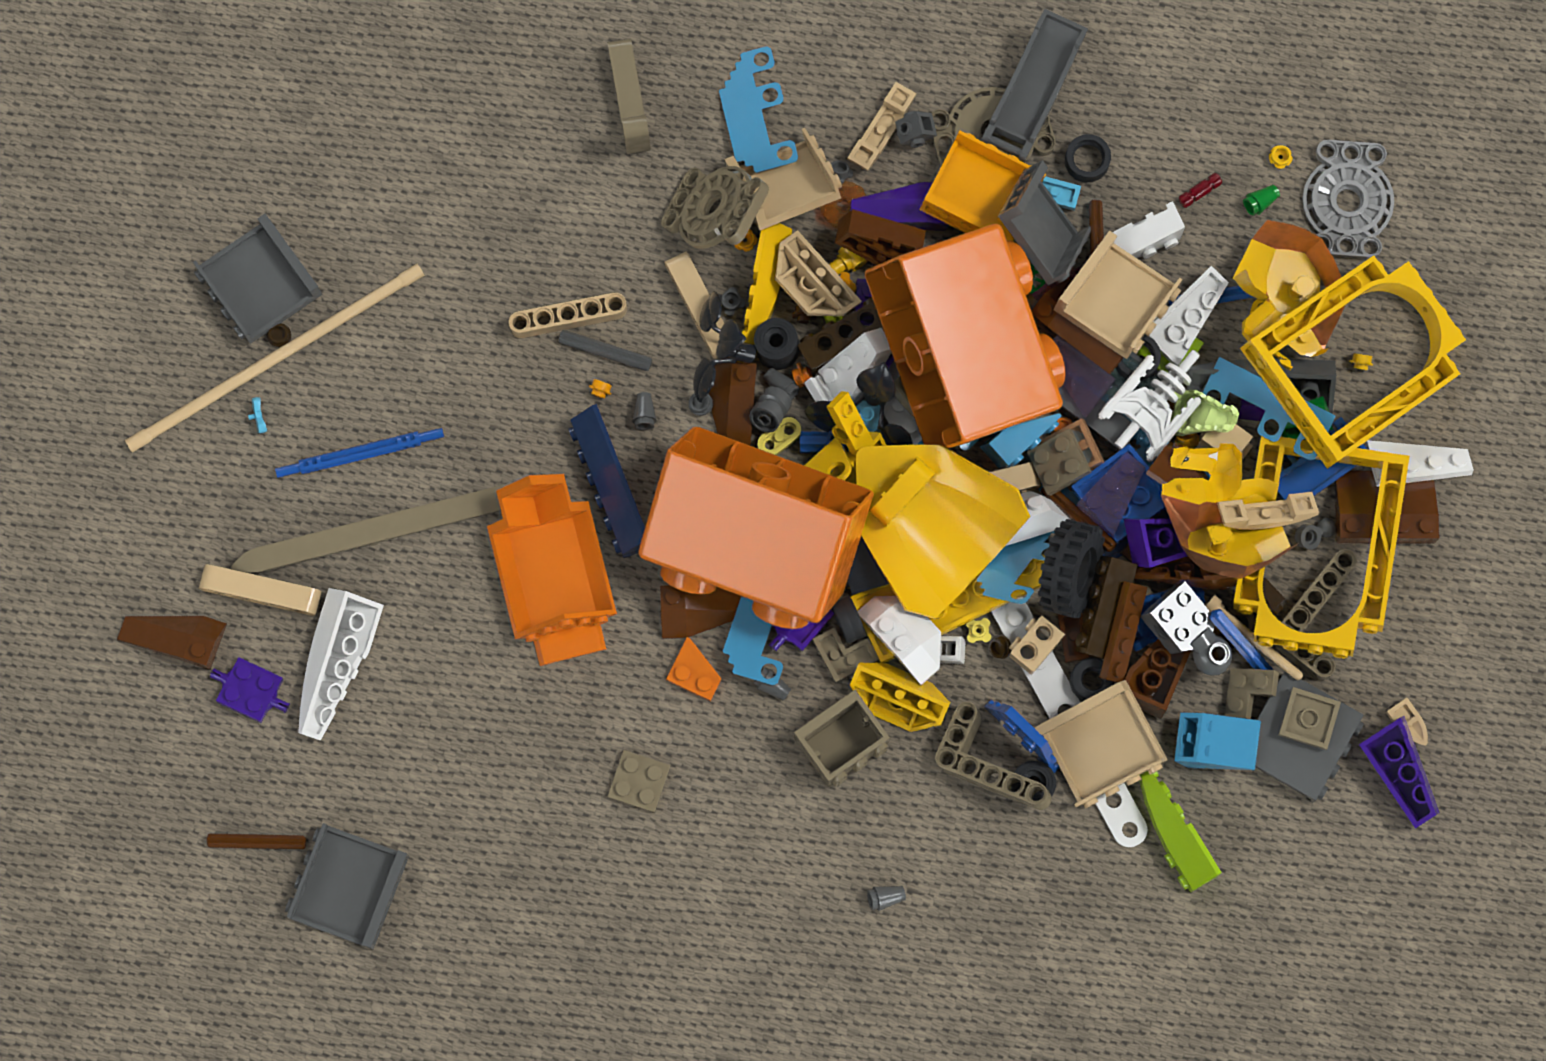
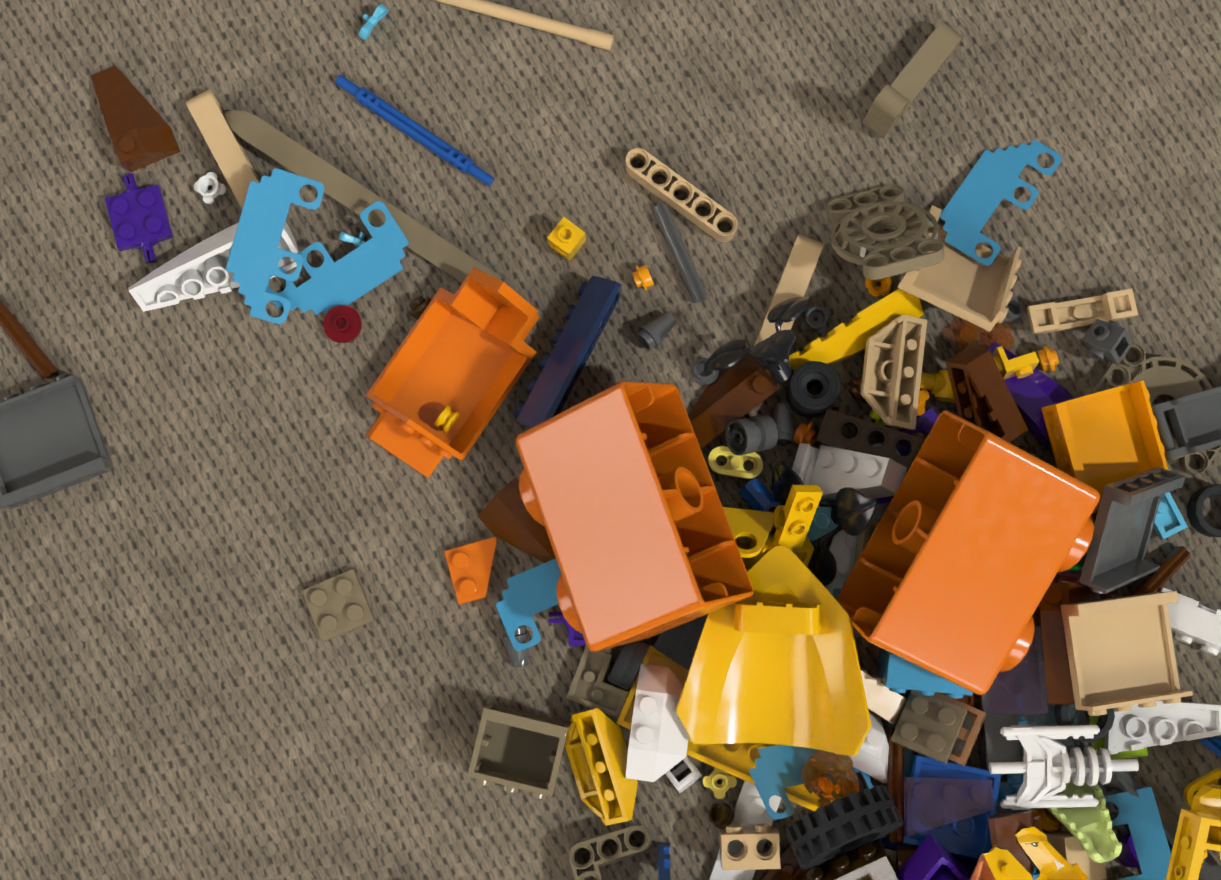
camera: 50 degrees right, 5 degrees up
(267, 619) = (204, 182): none -> white plate
(346, 618) = (258, 235): none -> dark azure piece
(403, 555) = (352, 239): none -> medium azure piece
(421, 592) = (351, 275): none -> dark azure piece
(450, 615) = (342, 324): none -> dark red piece
(485, 553) = (418, 306): none -> dark brown plate
(529, 415) = (566, 239): none -> yellow brick
(579, 599) = (447, 419): none -> yellow bush
(881, 199) = (1019, 366): none -> yellow bracket
(893, 175) = (1048, 359): none -> light orange plate
(1029, 550) = (837, 766): none -> clear orange plate

